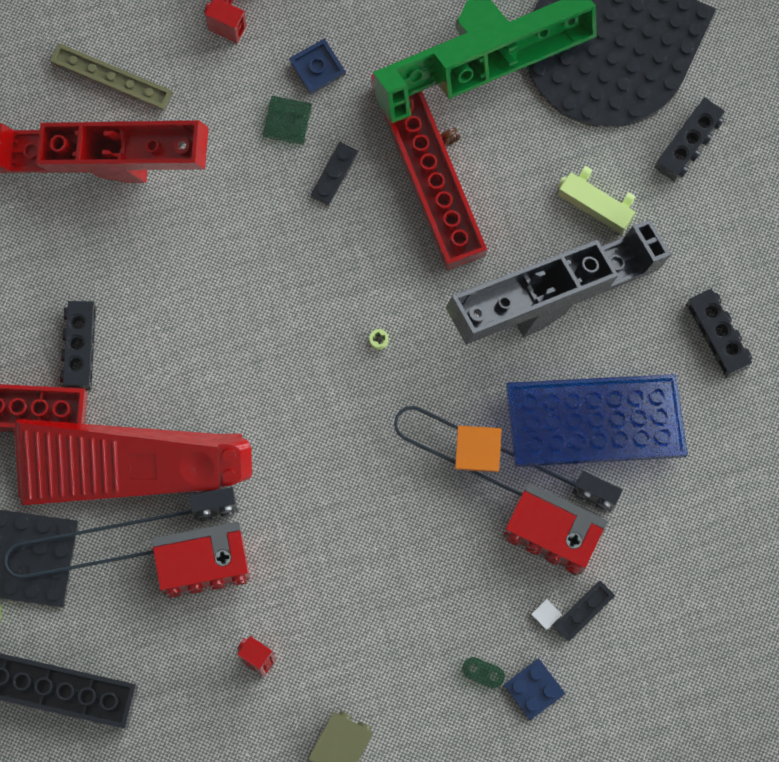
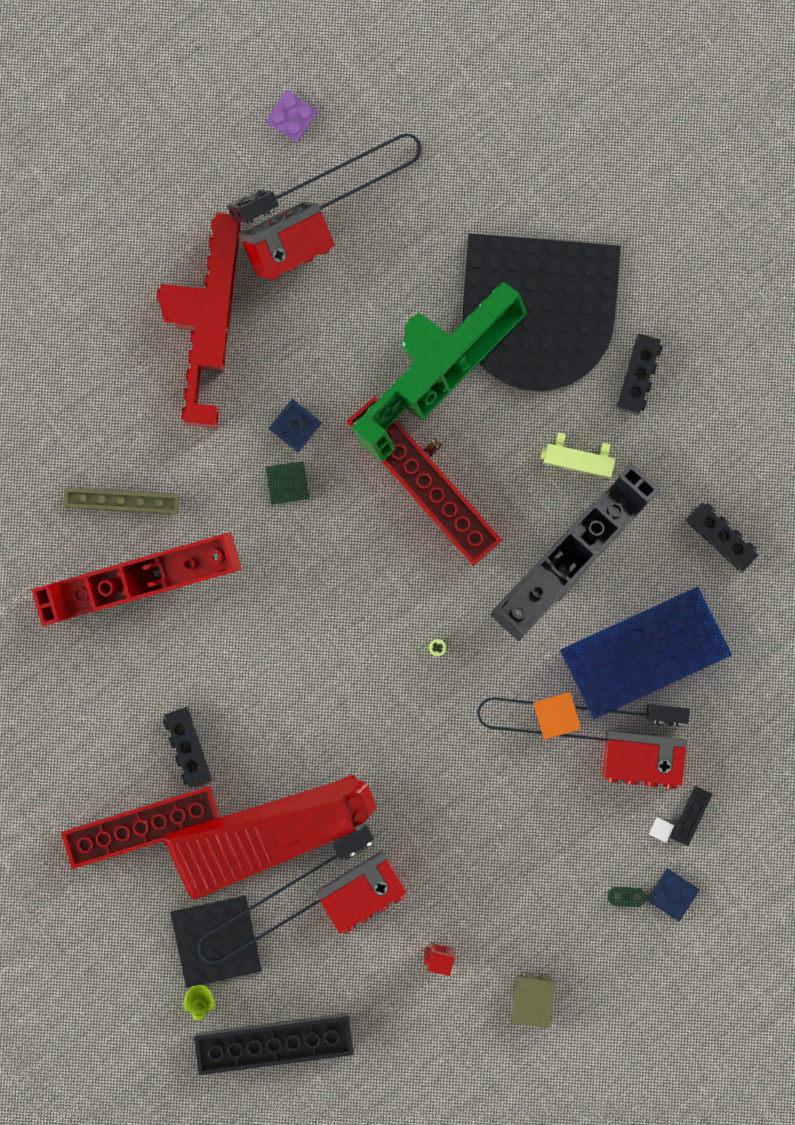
camera: 20 degrees left, 10 degrees up
(334, 173) = (345, 515): black plate -> none

